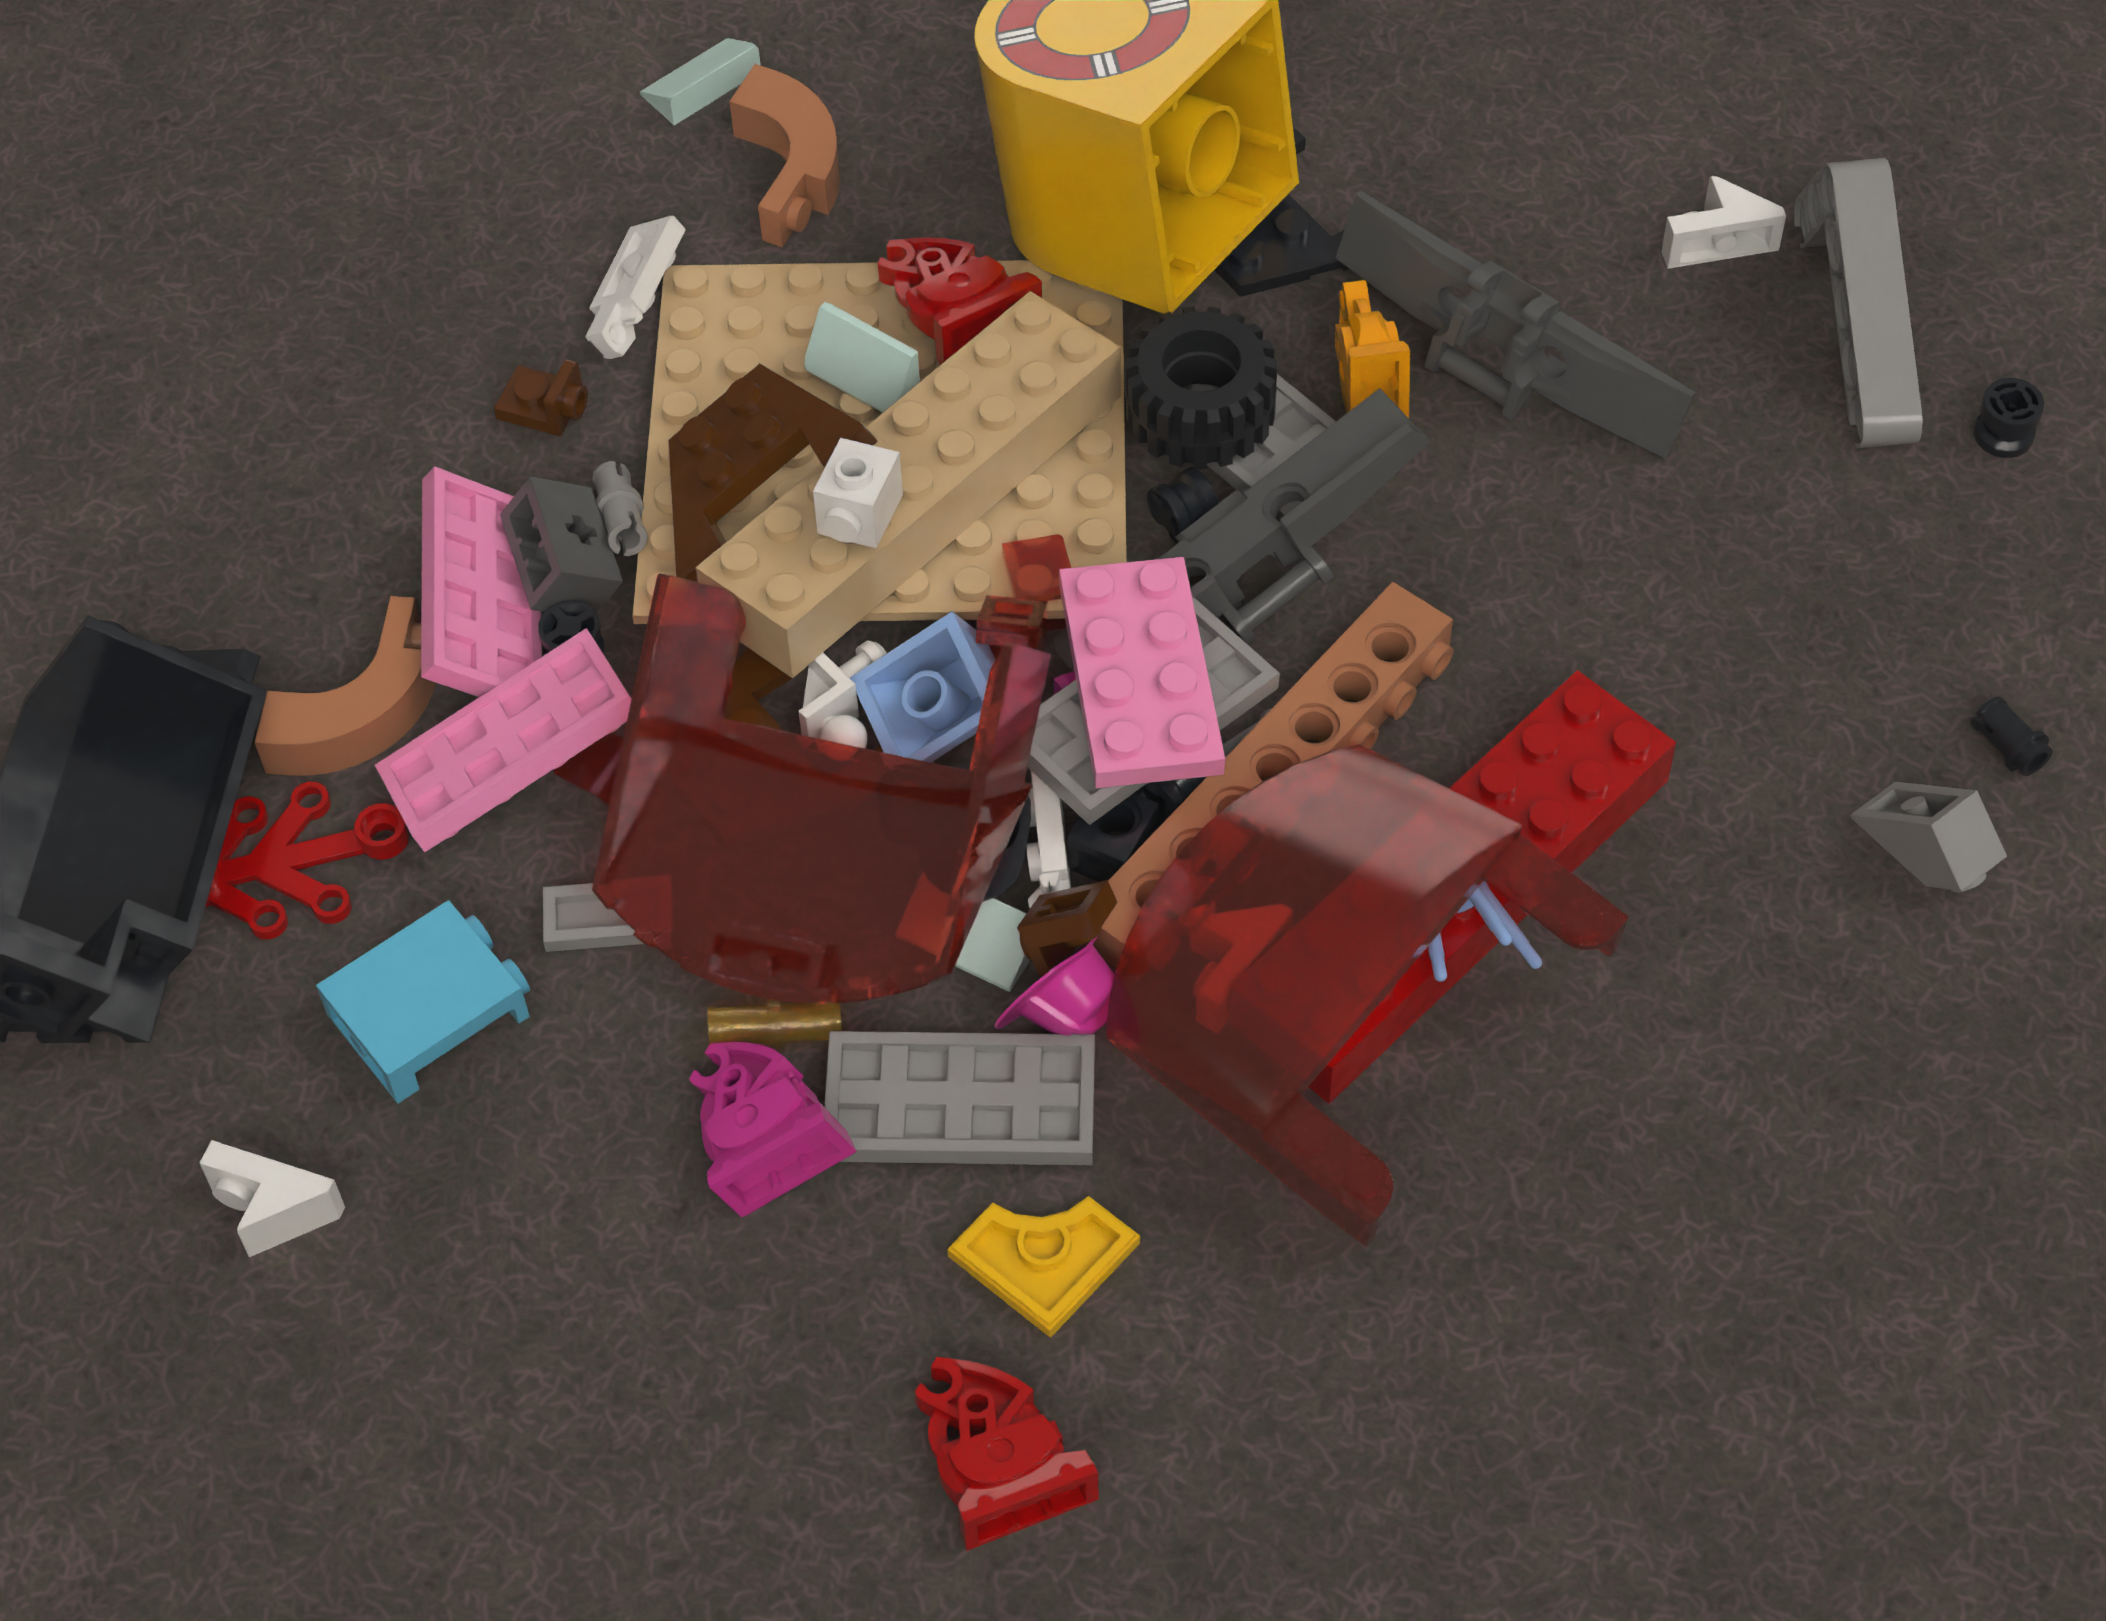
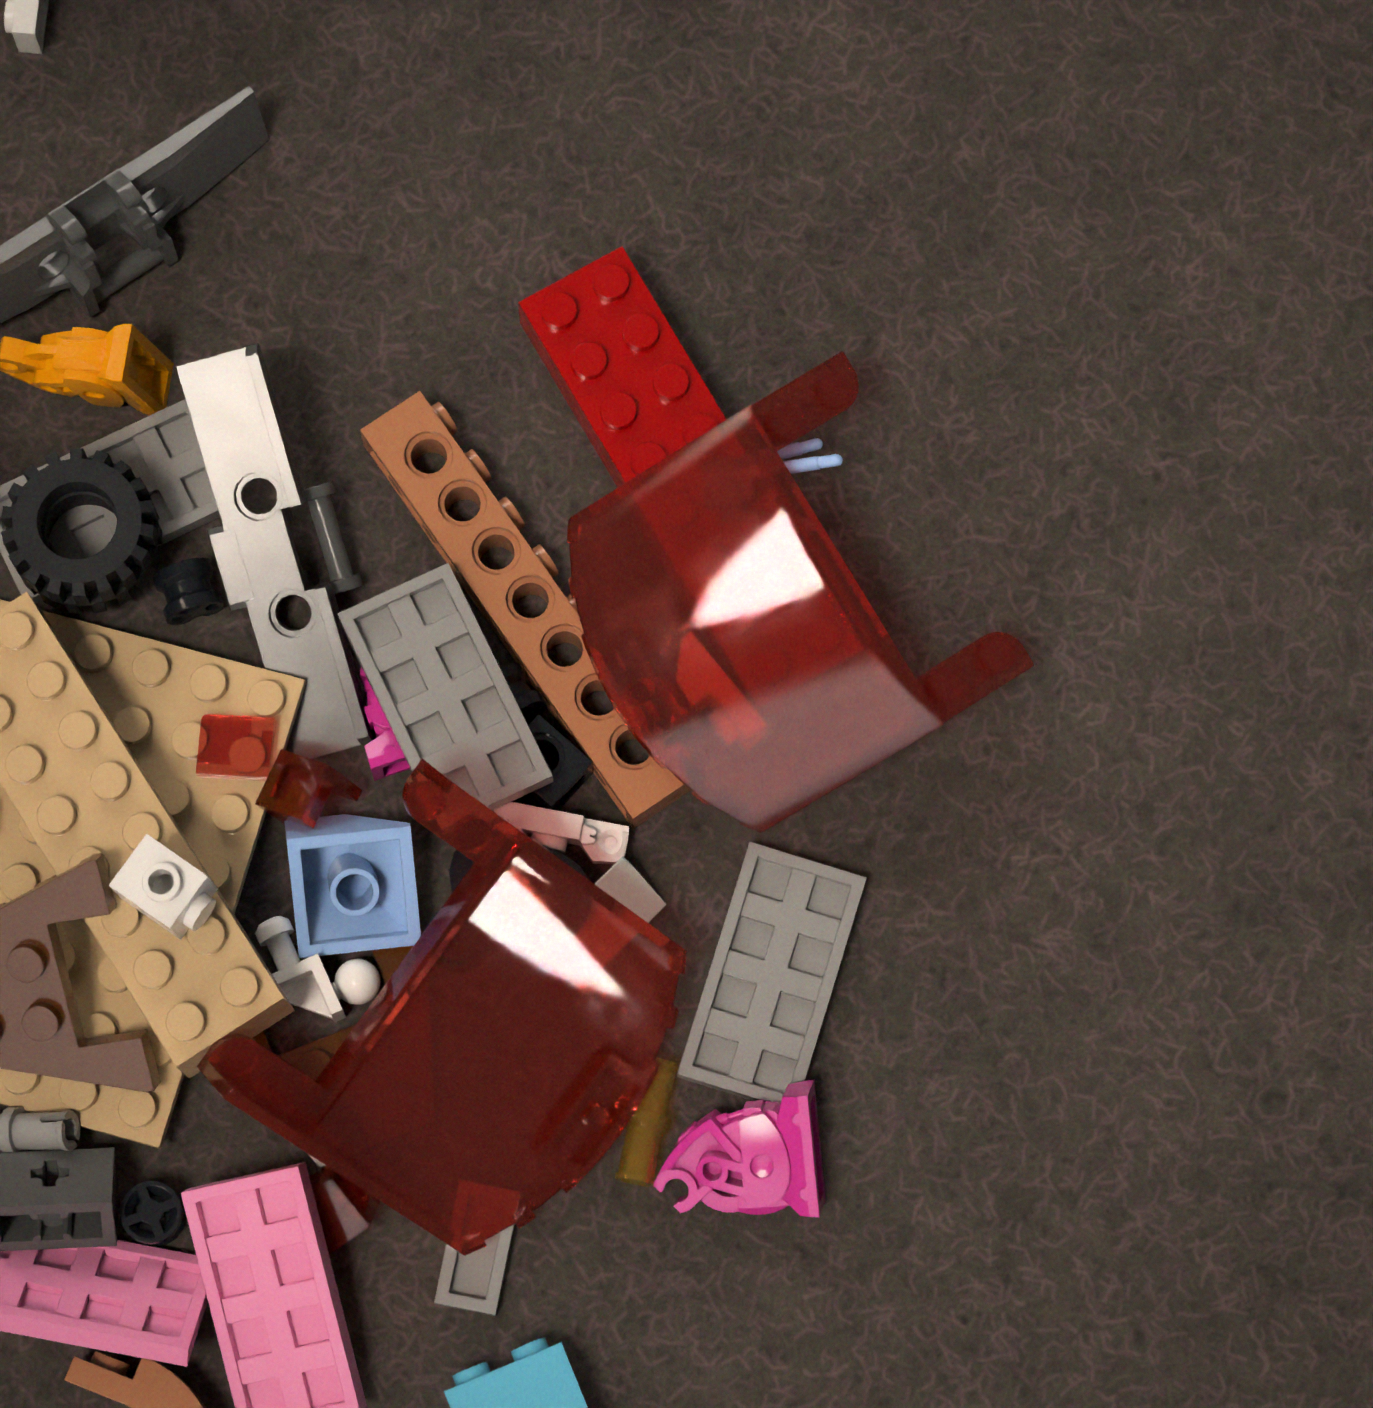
camera: 80 degrees left, 20 degrees up
(1008, 1458) = (1129, 1029): red piece -> none
(1045, 1262) = (947, 950): yellow tile -> none
(1064, 921) = (650, 831): reddish brown bracket -> none
(1068, 997) = (703, 856): dark pink piece -> none
(1141, 672) = (416, 685): bright pink plate -> none
(1934, 833) = (756, 71): light grey slope -> none

